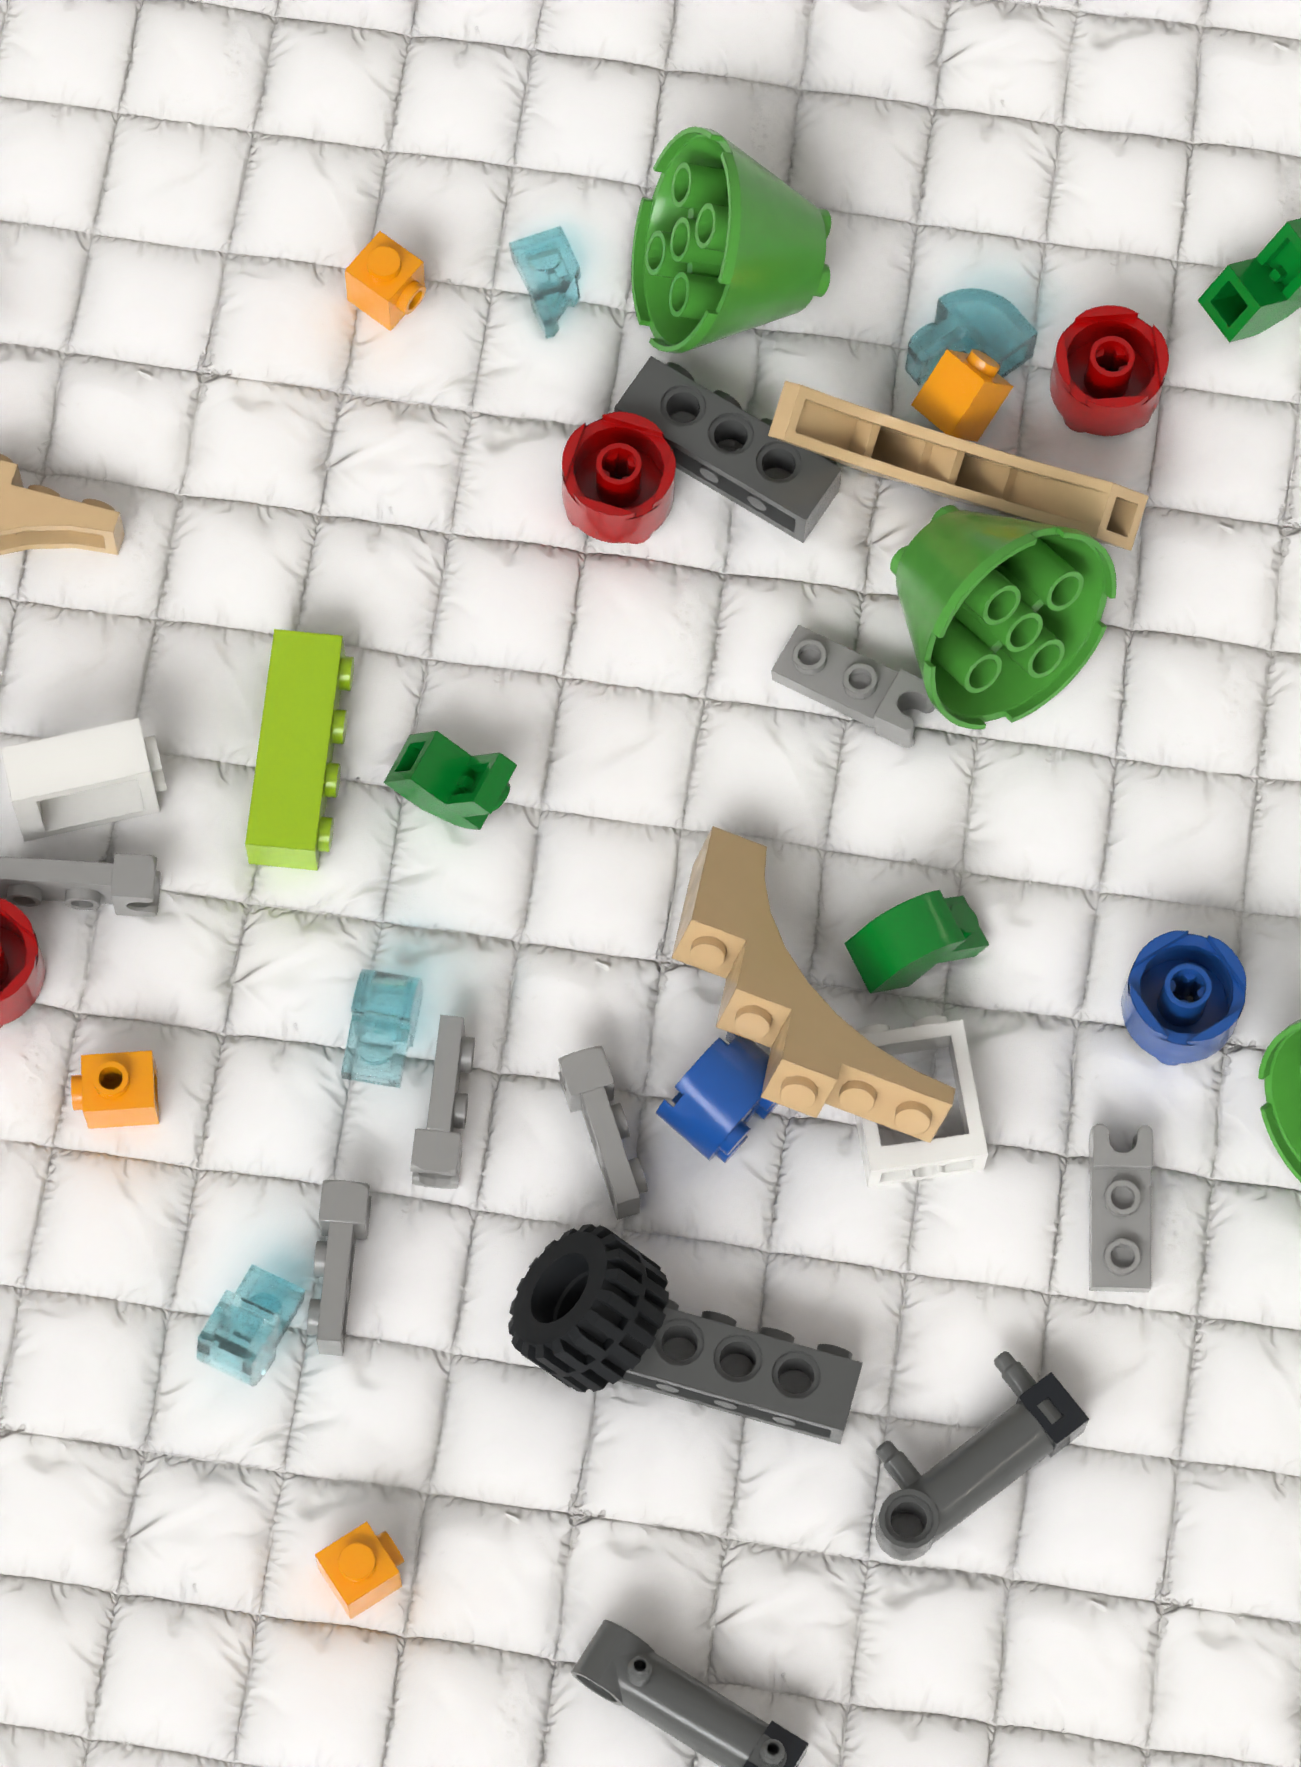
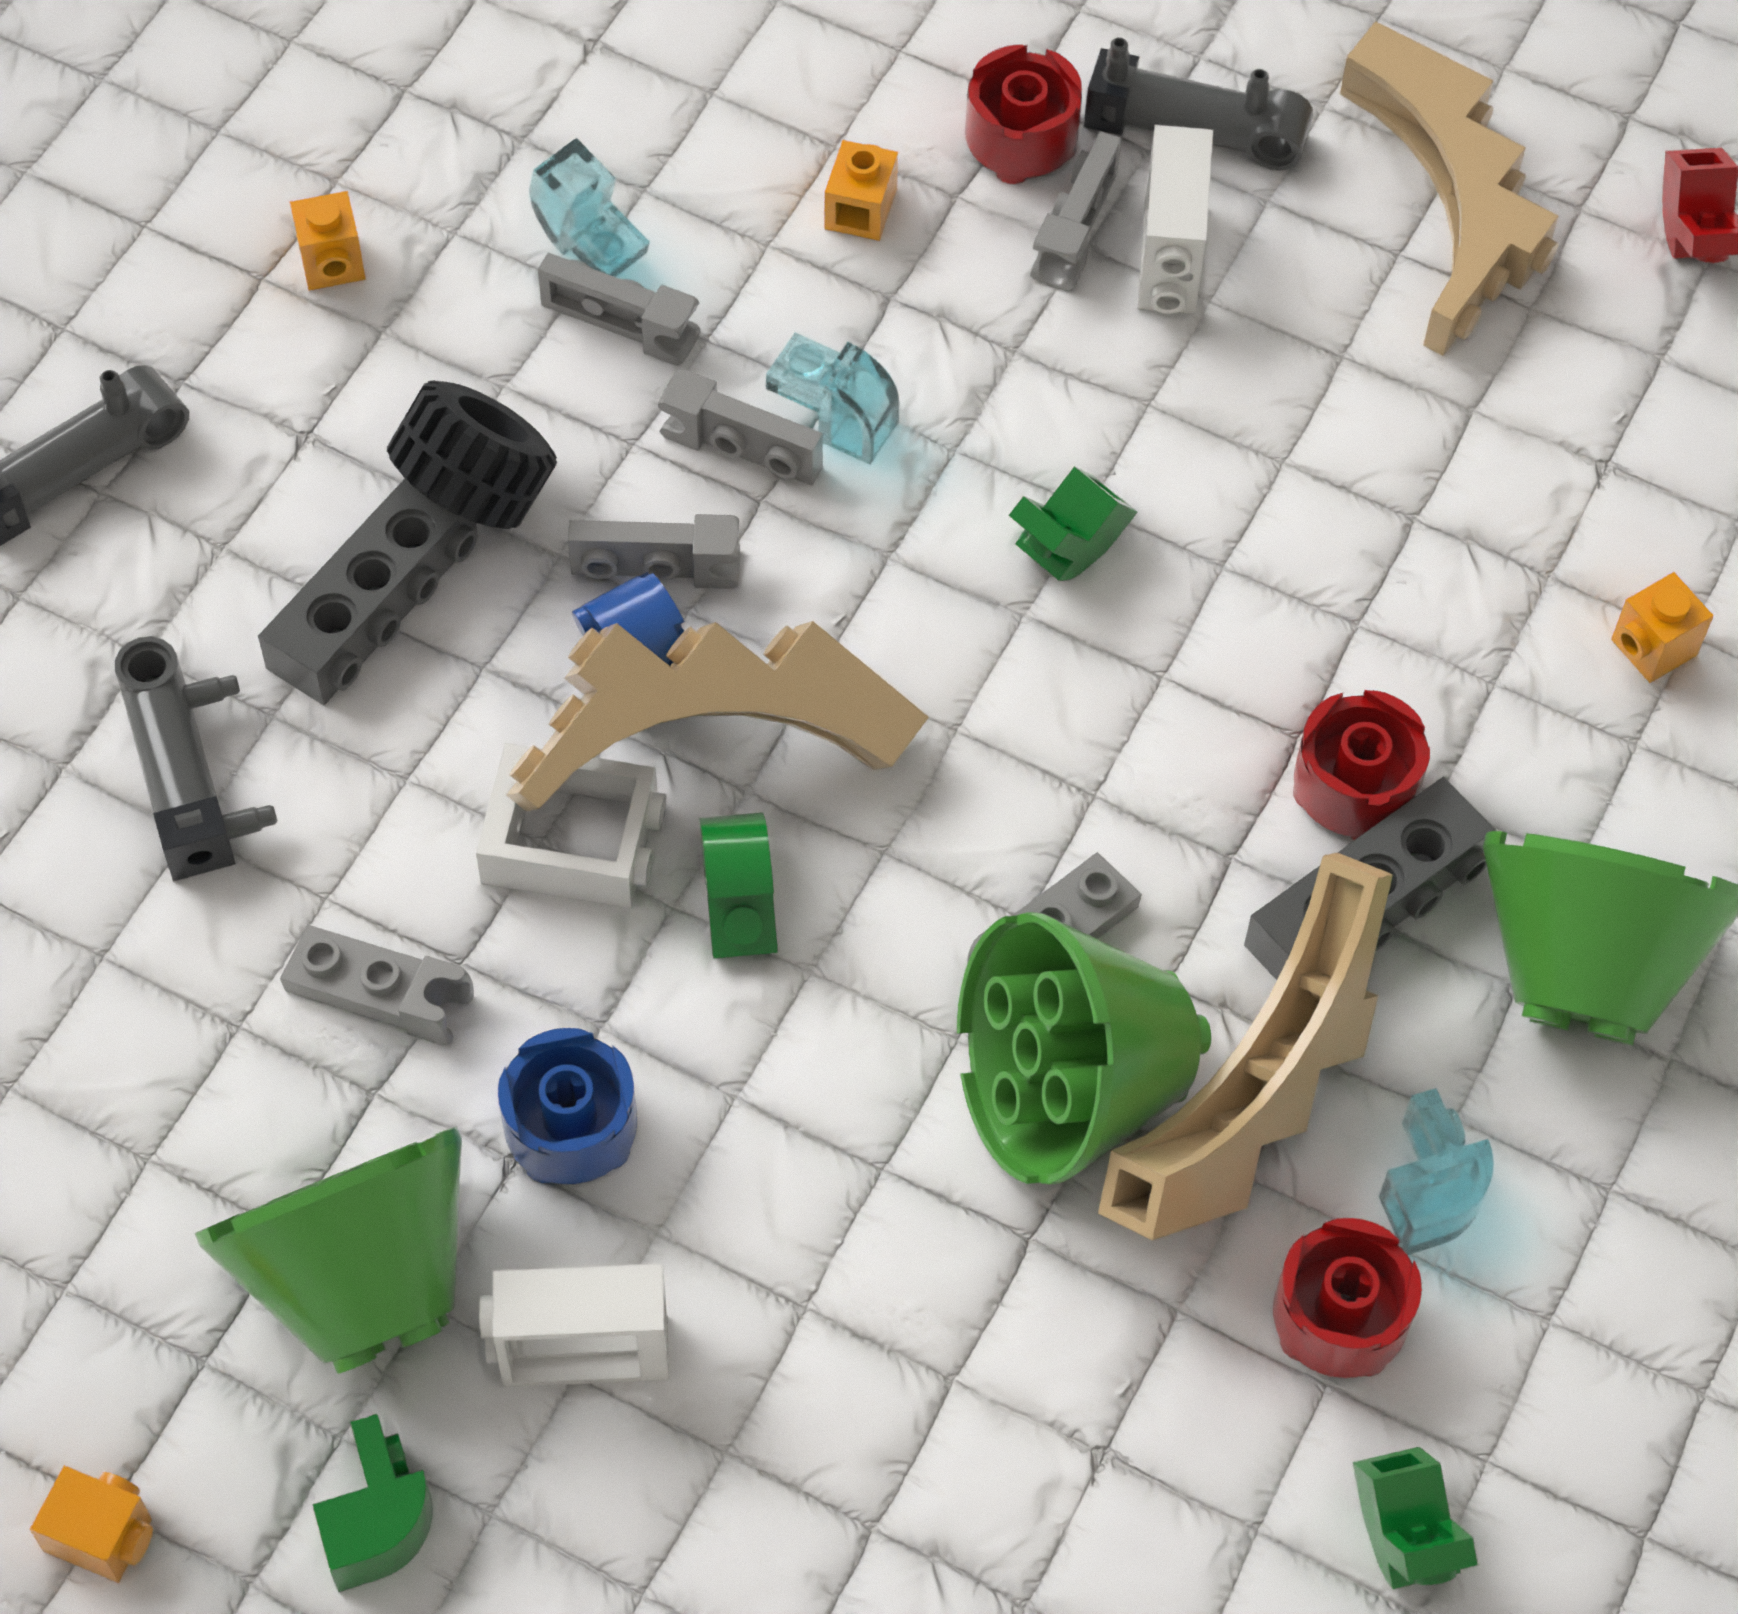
camera: 110 degrees right, 10 degrees down
(296, 750) = (1154, 413): lime brick -> none
(549, 275) = (1632, 785): clear light blue slope -> none
(963, 394) = (1359, 1128): light orange brick -> none

